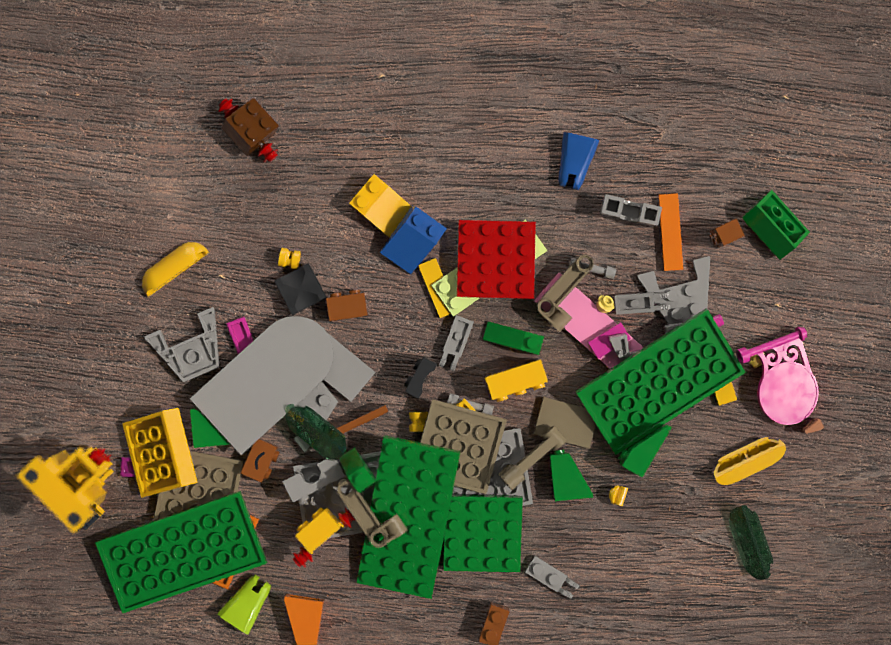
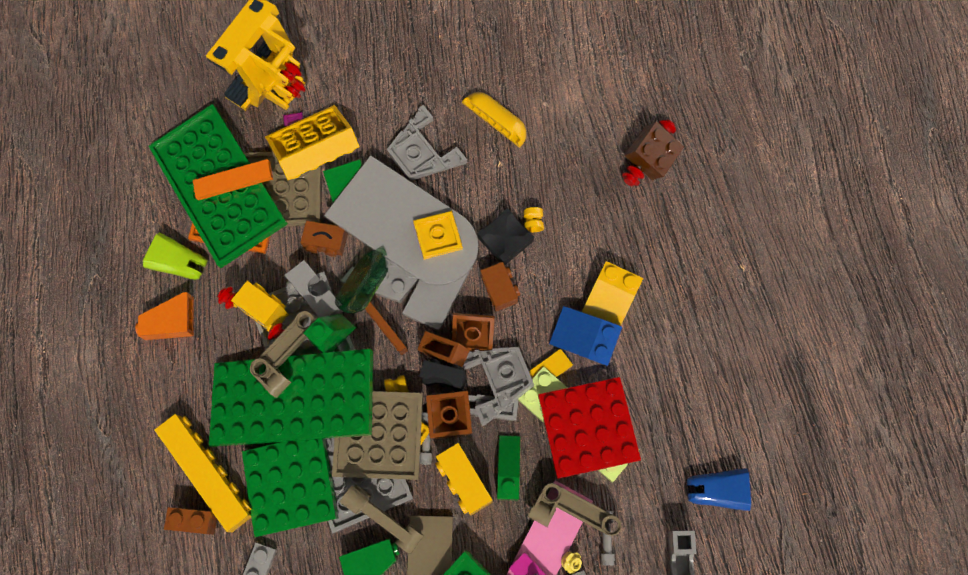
camera: 80 degrees right, 15 degrees down
(184, 535) = (232, 179): none -> orange tile
(240, 334) = (448, 191): dark pink tile -> none
(285, 352) = (437, 235): none -> yellow tile
(386, 341) = (473, 331): none -> dark orange slope
(396, 371) = (443, 349): none -> dark orange brick
(428, 321) = (506, 376): none -> light grey wing
(454, 607) = (204, 473): none -> yellow brick
(456, 380) = (449, 415): none -> dark orange slope

